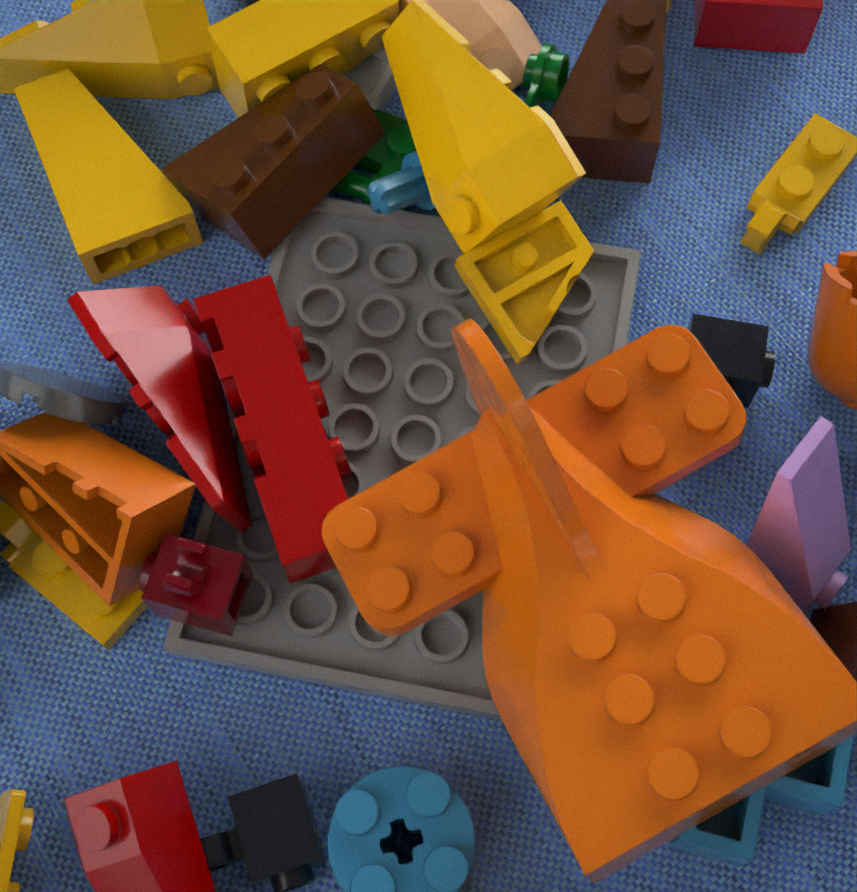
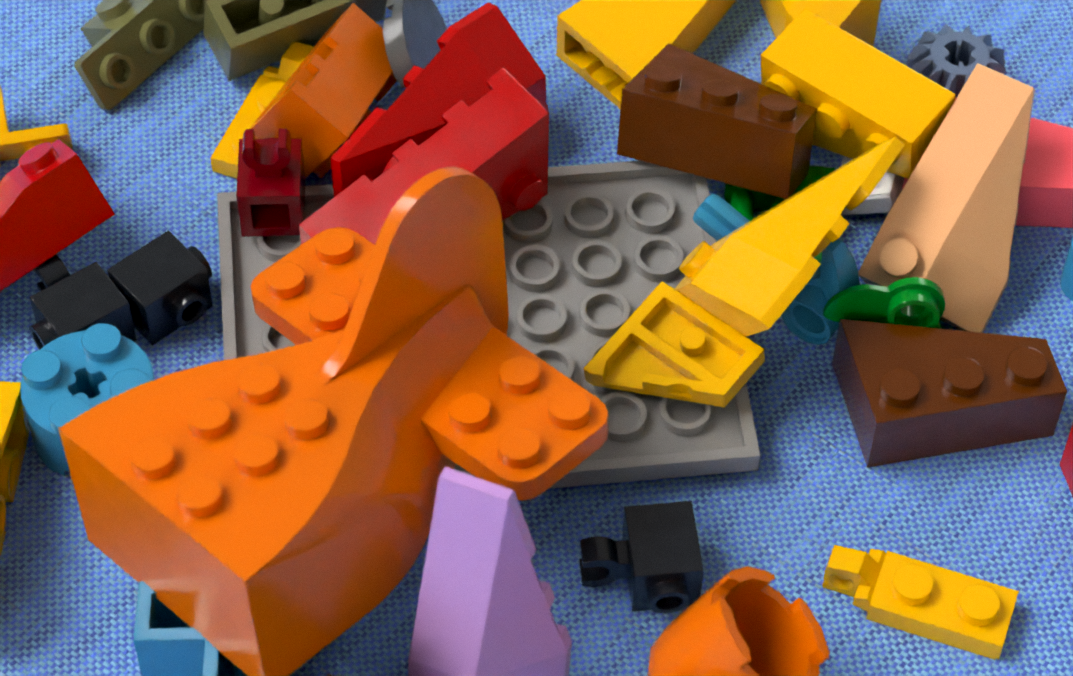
camera: 70 degrees right, 15 degrees down
(266, 732) = (164, 286): none -> black brick

